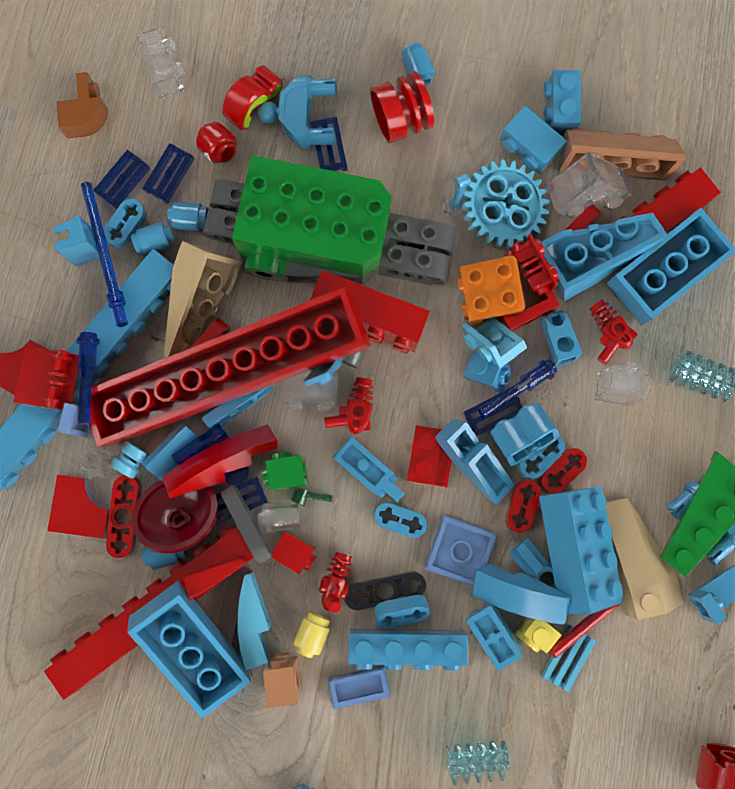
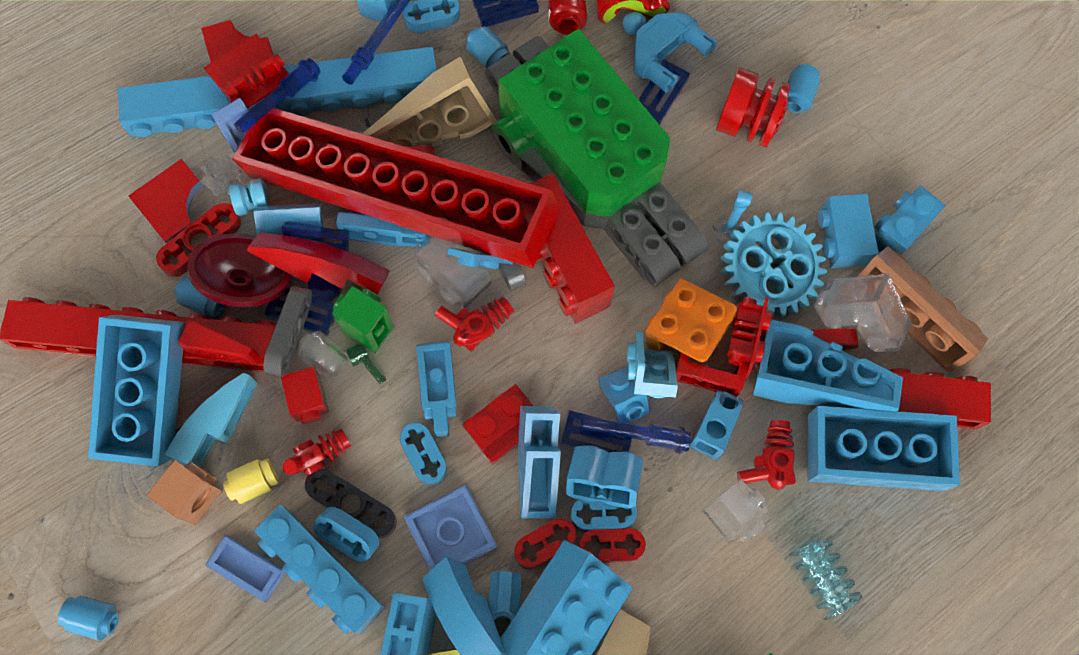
camera: 40 degrees right, 10 degrees down
(152, 237) = (445, 42): dark azure brick -> none

